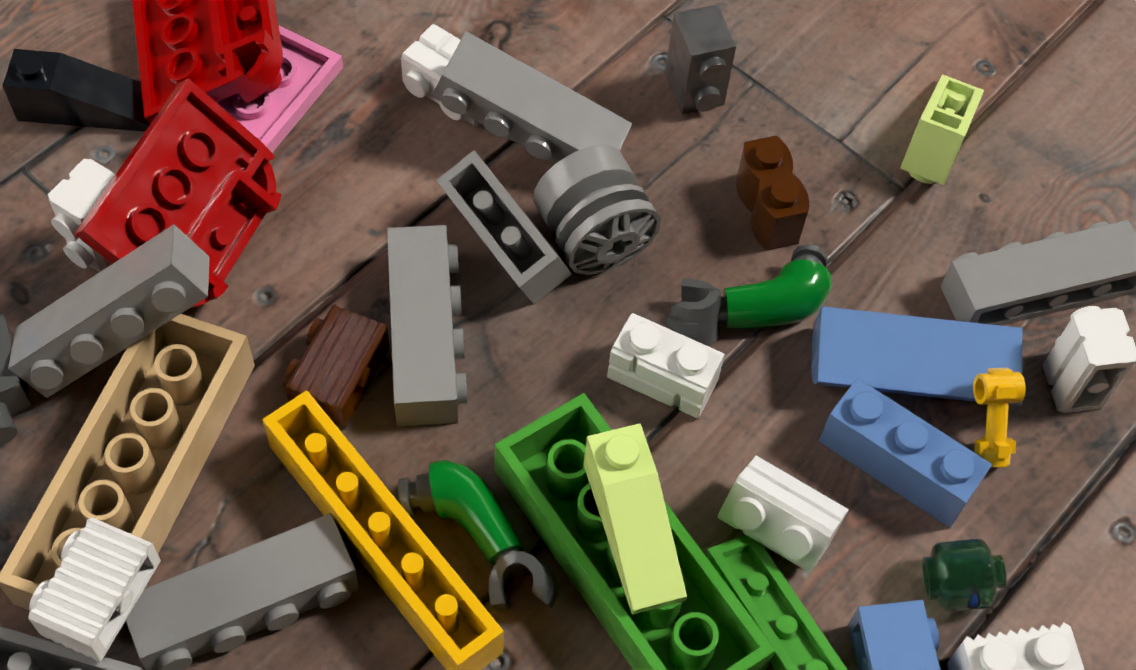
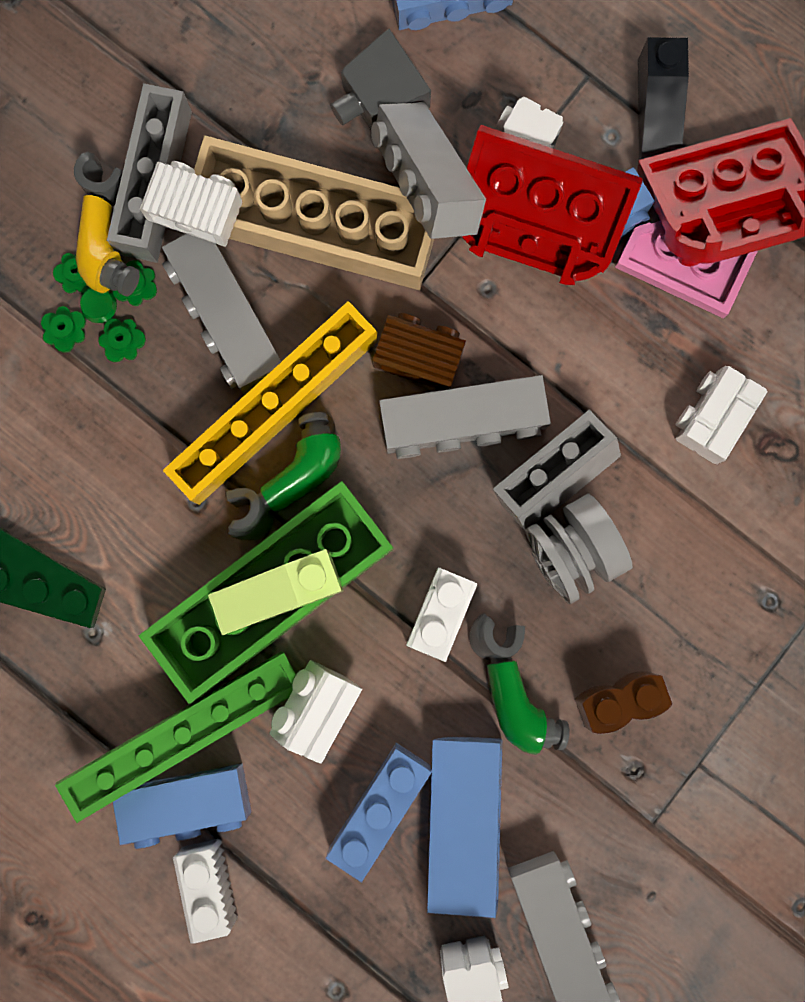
camera: 90 degrees right, 25 degrees up
(524, 103) = (676, 484): light grey brick -> none
(700, 59) = (755, 634): flat silver brick -> none
(941, 130) = (715, 861): yellowish green slope -> none
(963, 575) = (277, 854): clear green head -> none
(997, 390) = (428, 890): yellow bar -> none

